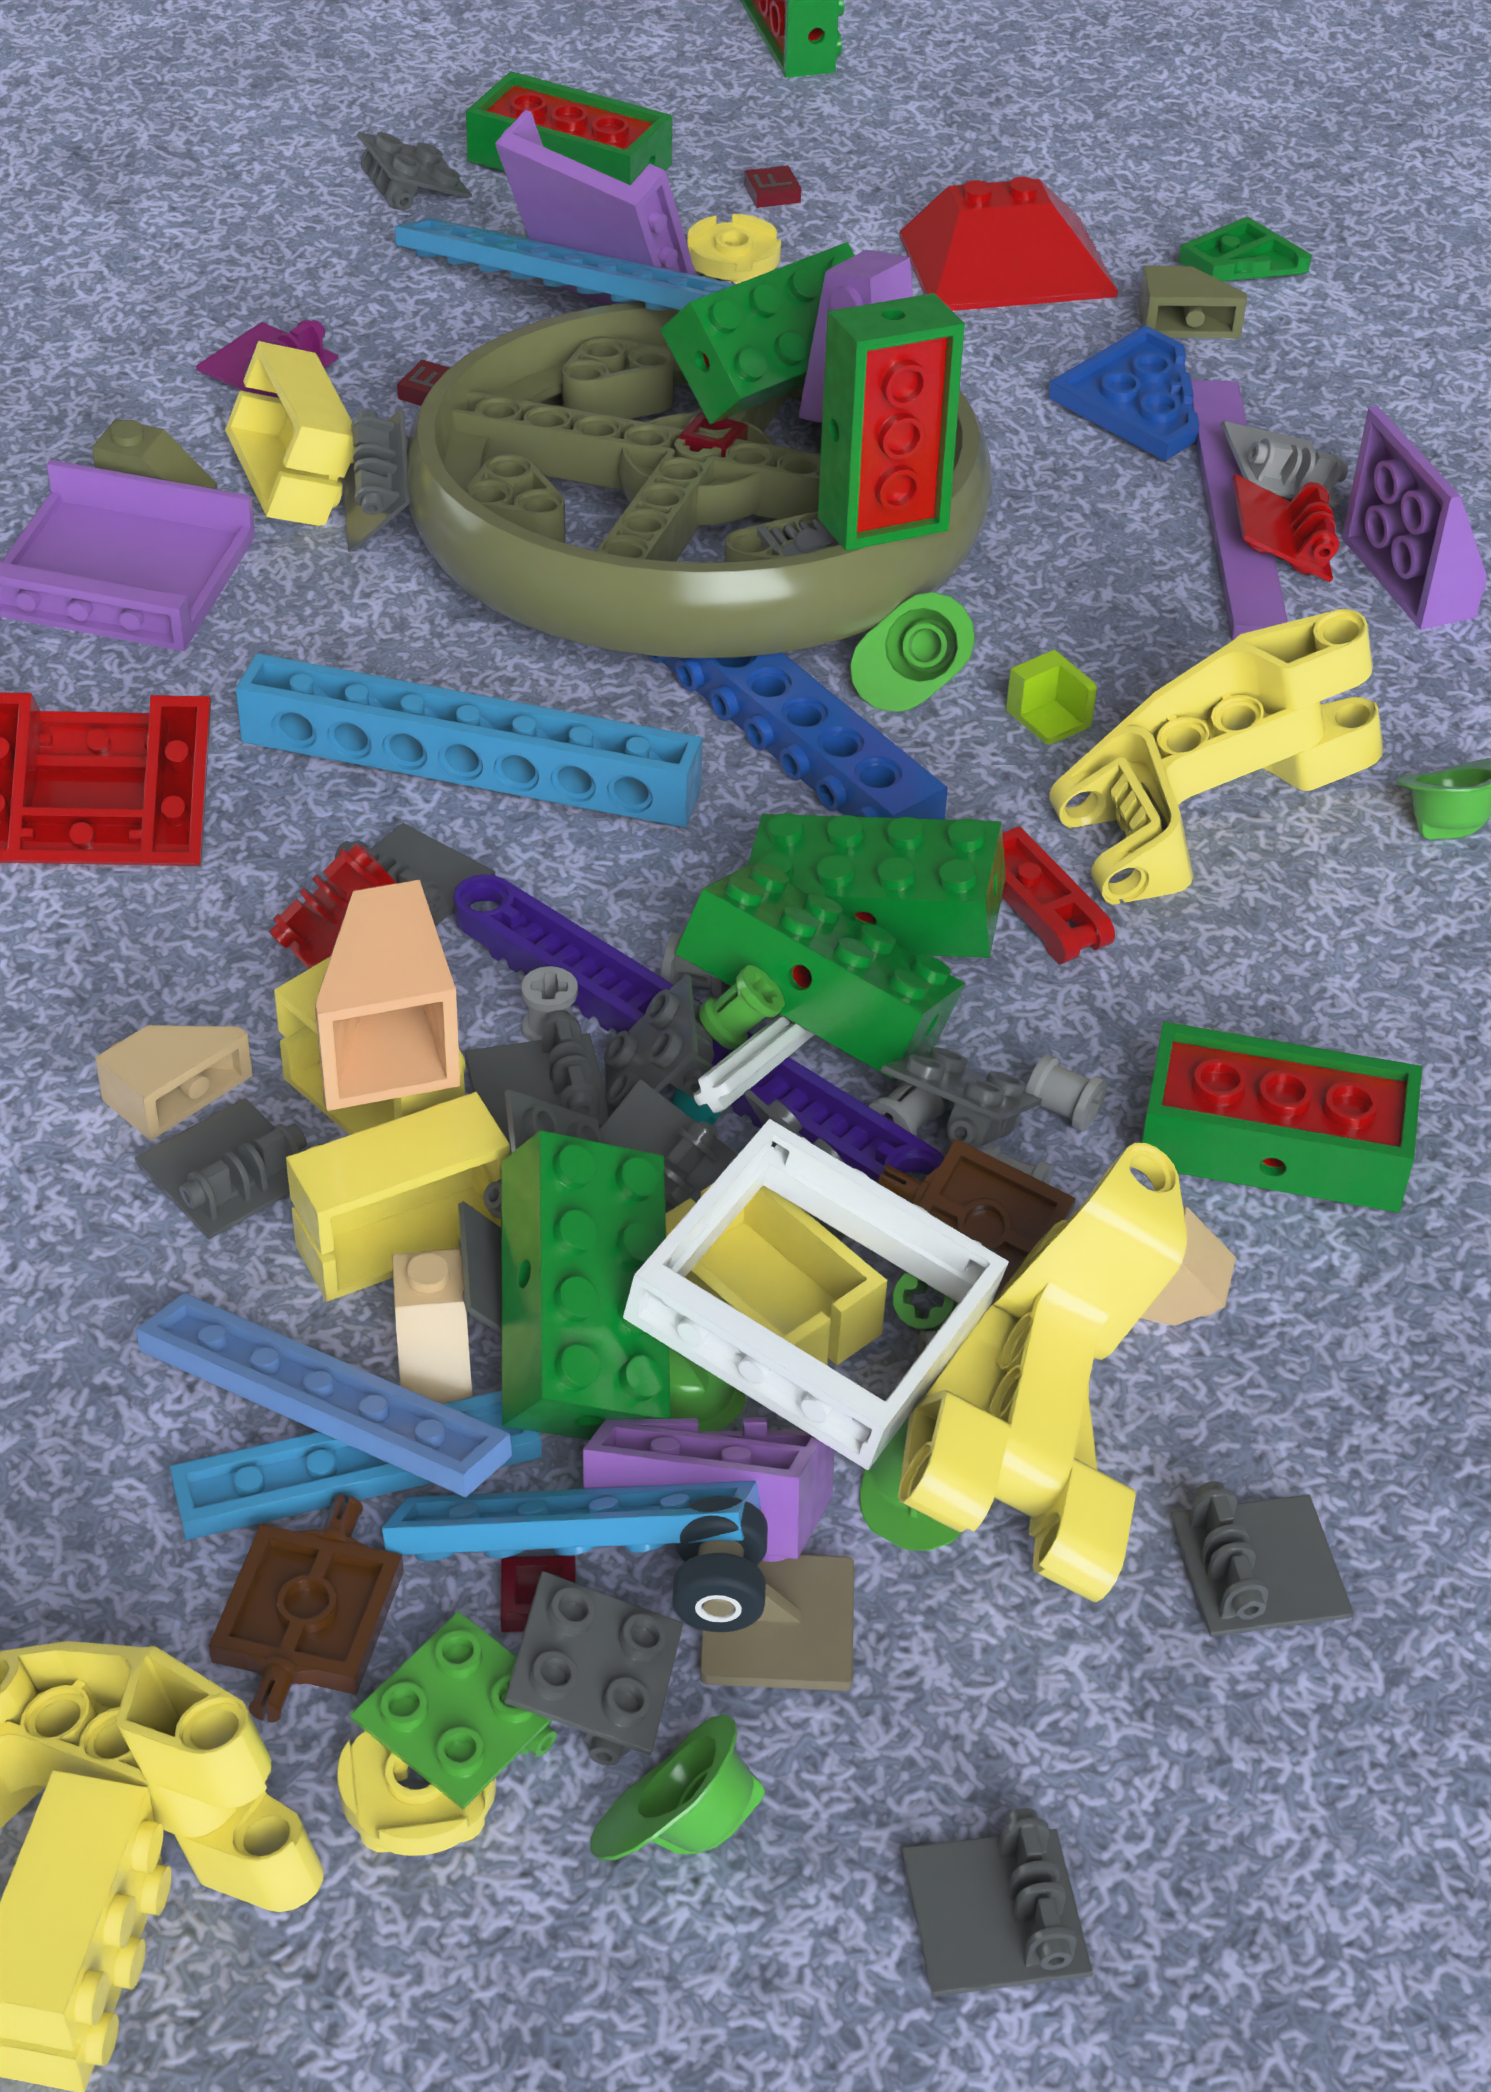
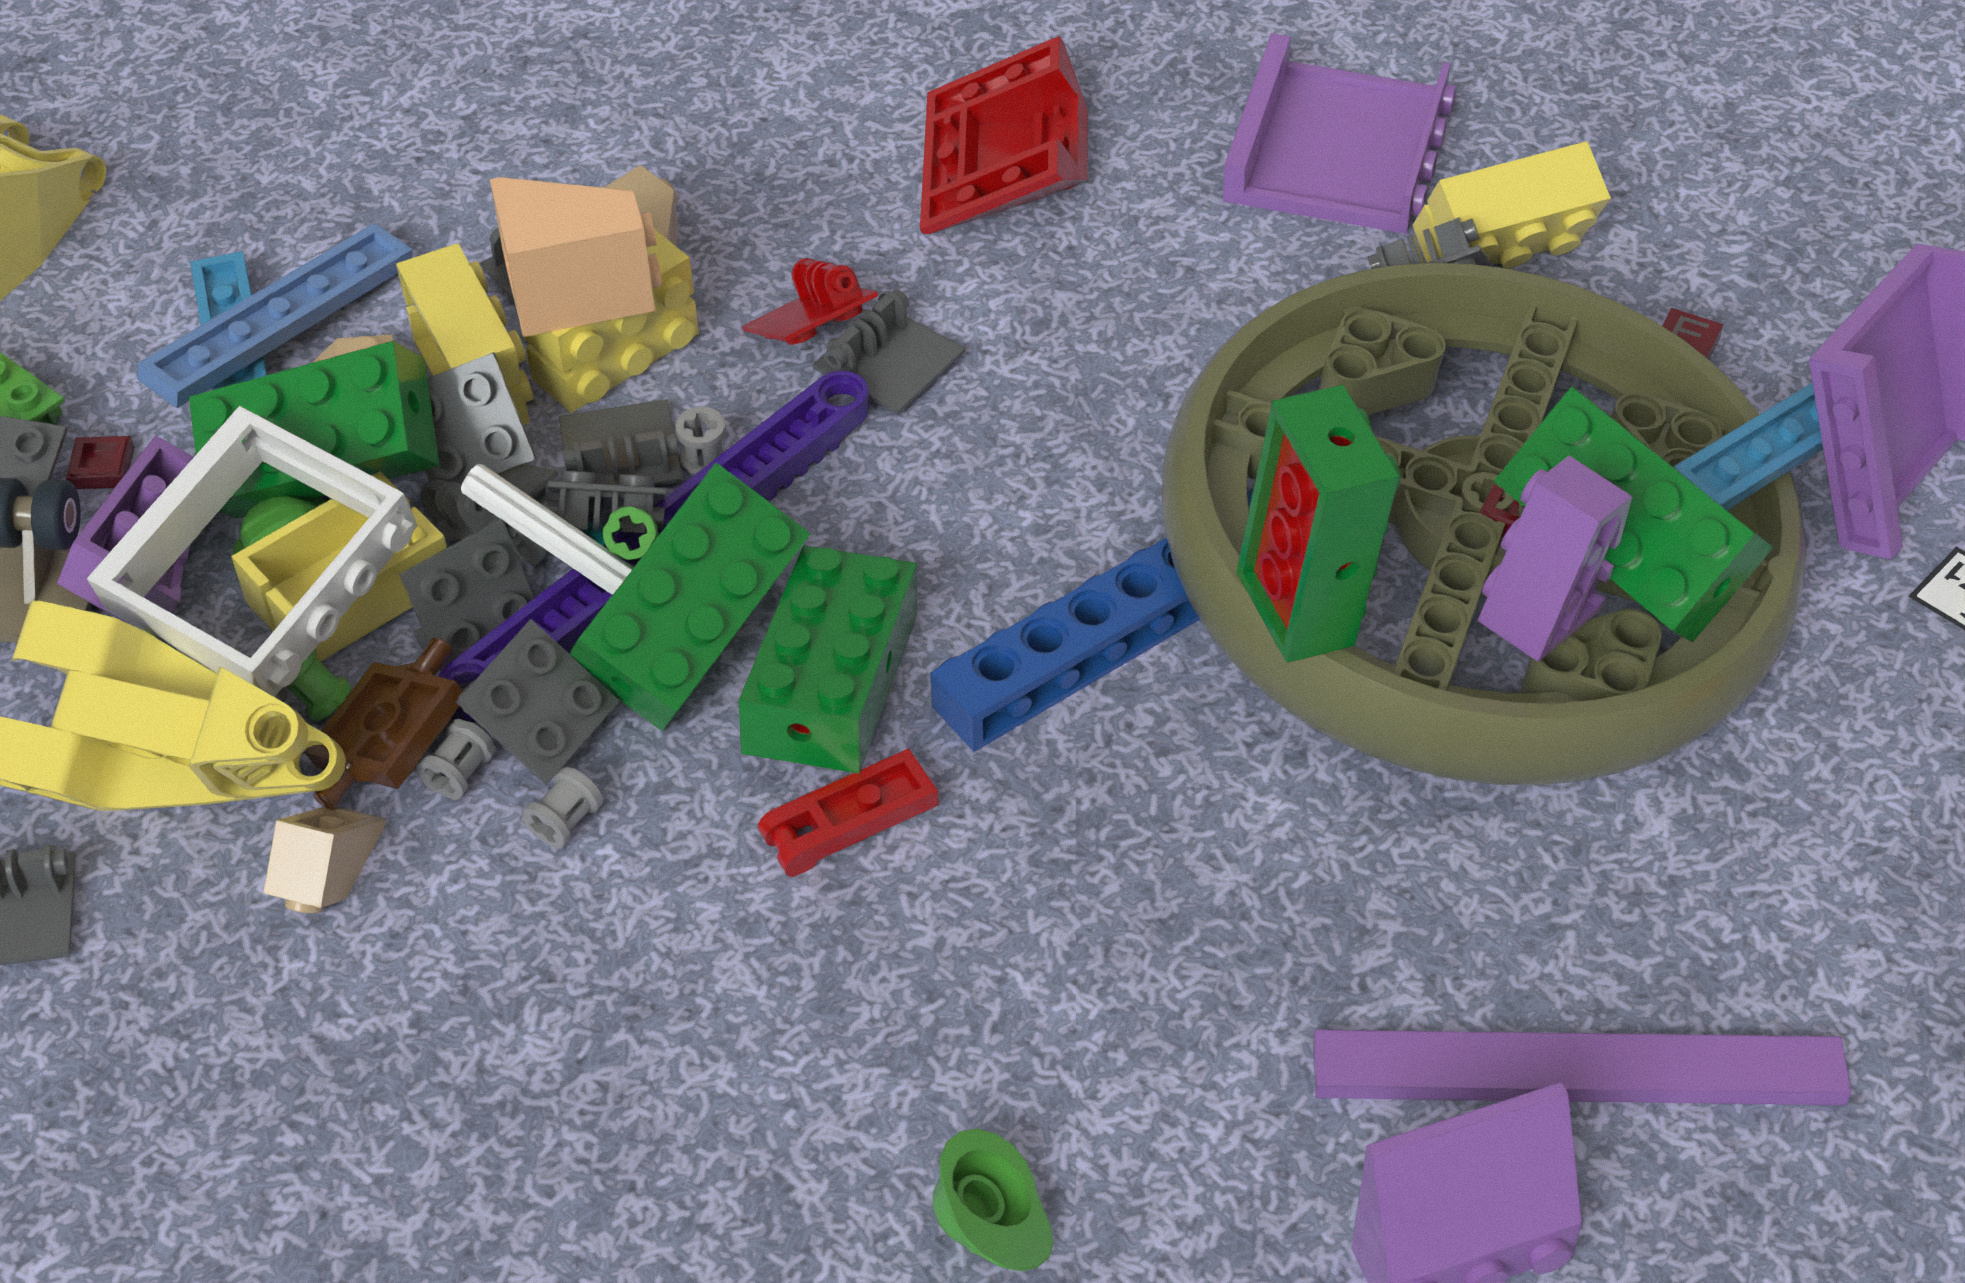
camera: 95 degrees right, 5 degrees up
(148, 453) = (1473, 131): olive slope -> none
(234, 359) = (1700, 215): magenta hinge -> none
(307, 1609) = (103, 333): reddish brown plate -> none
(471, 739) = (1048, 378): dark azure brick -> none
(557, 1520) = (109, 452): dark azure plate -> none
(912, 652) = (1217, 713): bright green piece -> none
(1051, 697) = (1167, 842): lime panel -> none
(1135, 392) = (1804, 973): blue plate -> none
(1218, 721) = (1036, 920): light yellow piece -> none
(1283, 461) = (1651, 1111): light grey hinge -> none
(1284, 1116) = (486, 962): brick -> none
(1293, 530) = (1499, 1063): red hinge -> none

